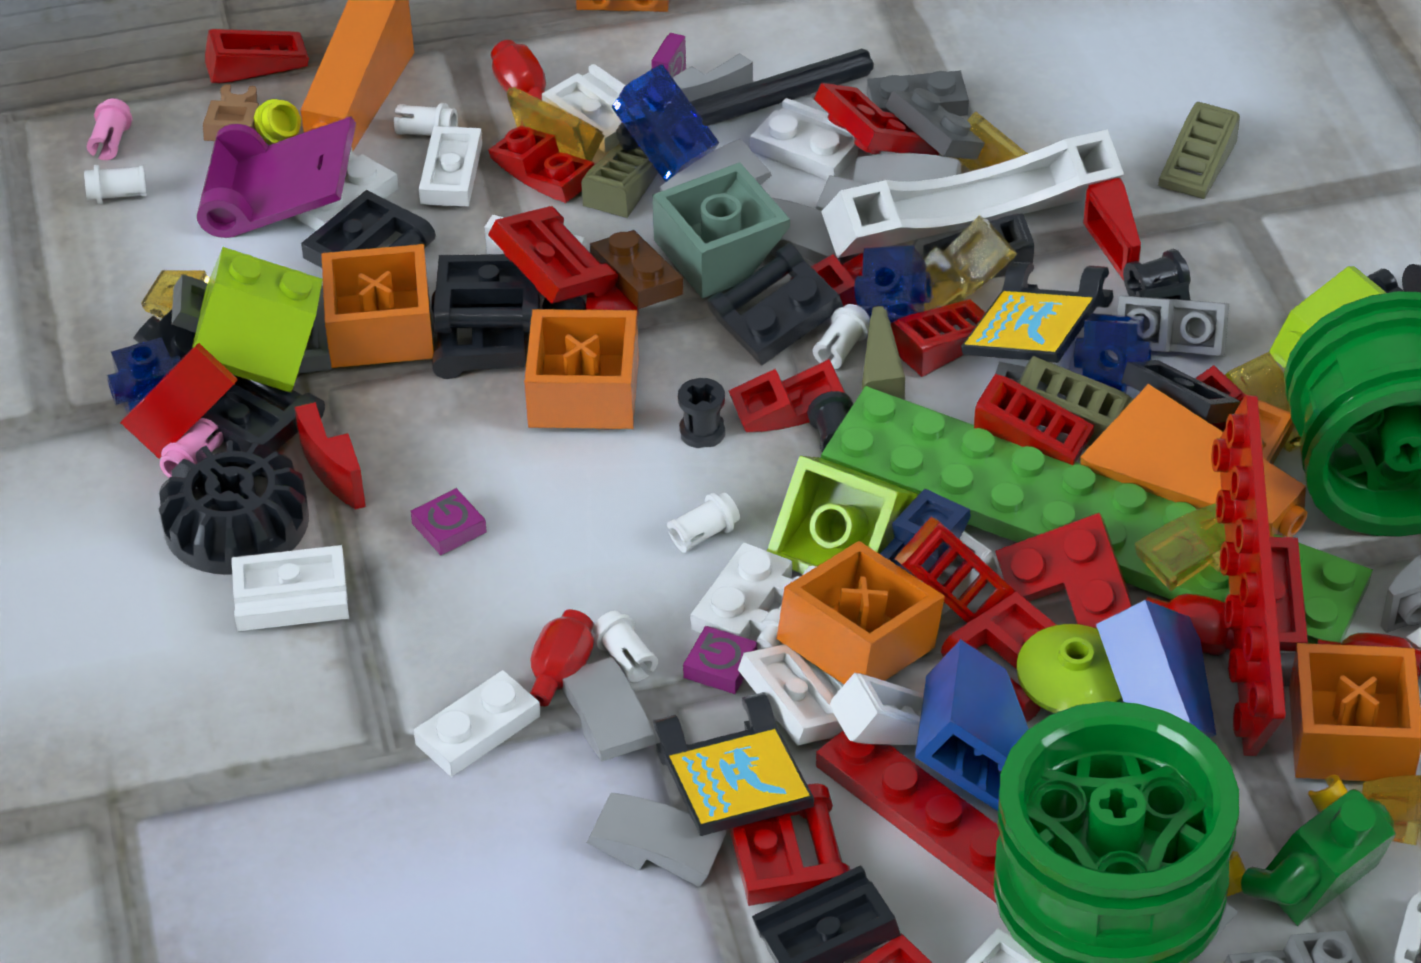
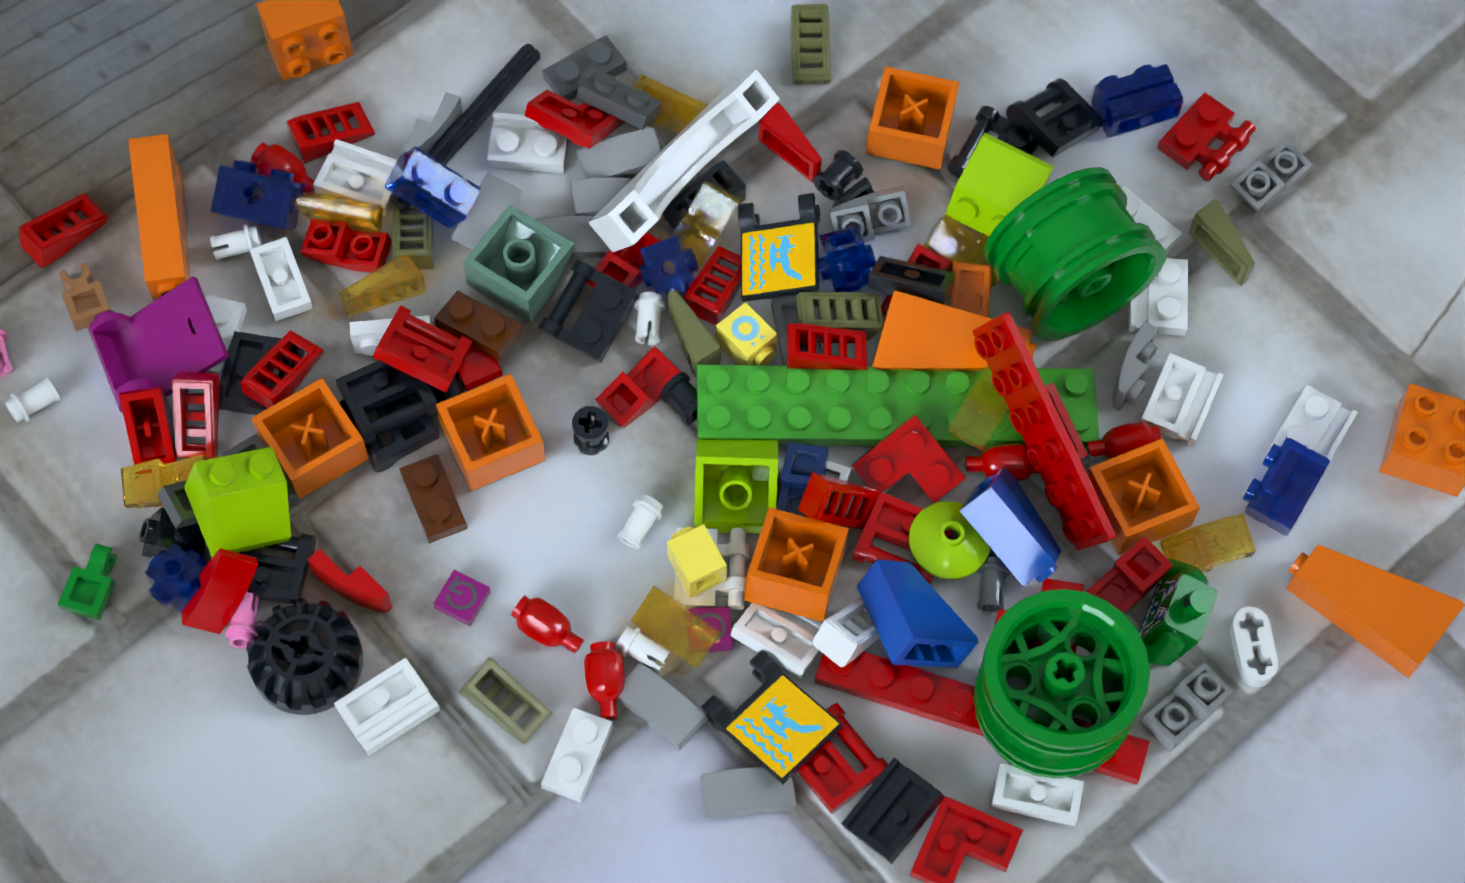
camera: 30 degrees left, 20 degrees up
(52, 361) = (90, 589): none -> green plate
(216, 221) = (148, 425): none -> red slope
(266, 223) = (181, 399): none -> red slope
(277, 120) = (124, 291): neon yellow plate -> none
(382, 228) = (253, 382): none -> red slope
(420, 598) = (516, 690): none -> olive slope
(472, 80) = (235, 195): none -> clear blue brick
(480, 419) = (433, 498): none -> reddish brown plate
(525, 577) = (545, 624): none -> red plant
(575, 51) = (322, 145): none -> red slope
(579, 195) = (385, 286): none -> clear yellow slope
(671, 54) = (392, 118): magenta tile -> none
(677, 635) = (675, 627): none -> clear yellow slope
(738, 566) = (696, 559): none -> light yellow brick
(945, 383) = (747, 337): none -> light yellow brick
(1279, 245) = (912, 118): none -> orange brick
(1282, 805) = (1132, 576): none -> red slope

